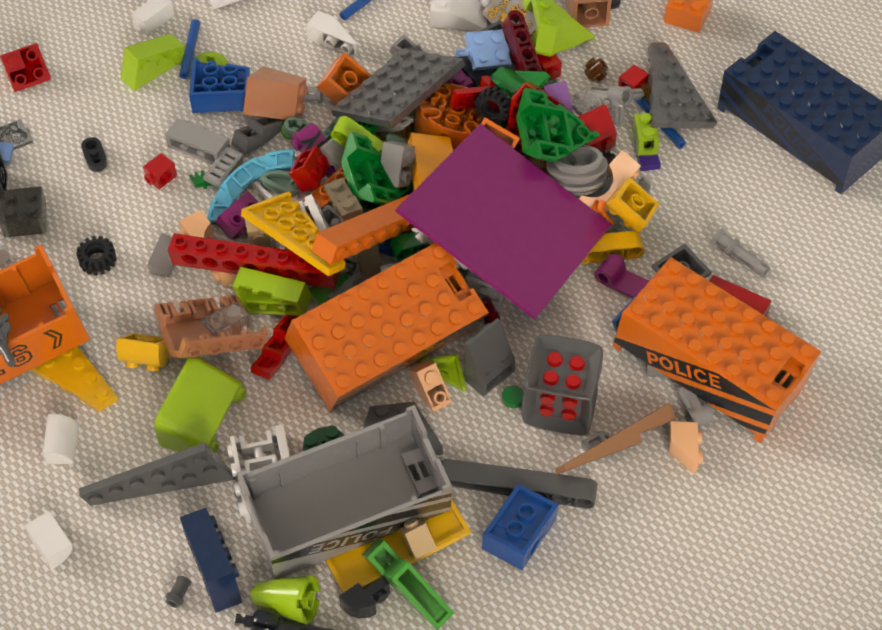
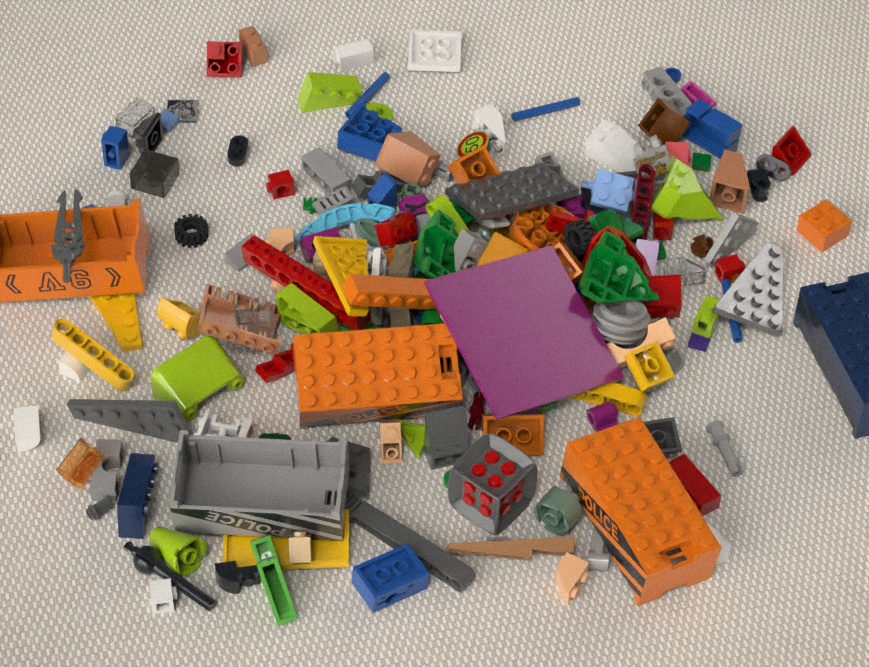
camera: 25 degrees right, 5 degrees down
(50, 44) = (253, 46): none -> nougat brick
(67, 422) = (90, 346): none -> yellow beam
(133, 553) = (80, 463): none -> clear orange brick
(153, 531) = (104, 482): none -> light grey arch
(270, 137) = (384, 192): none -> blue slope
(322, 57) = (472, 142): none -> piece
(553, 320) = (522, 430): none -> orange slope
(599, 207) = (619, 358): orange hand -> none
(620, 53) = (733, 235): none -> light grey plate
(620, 98) = (702, 282): light grey axle -> none
(636, 383) = (558, 510): none -> sand green brick

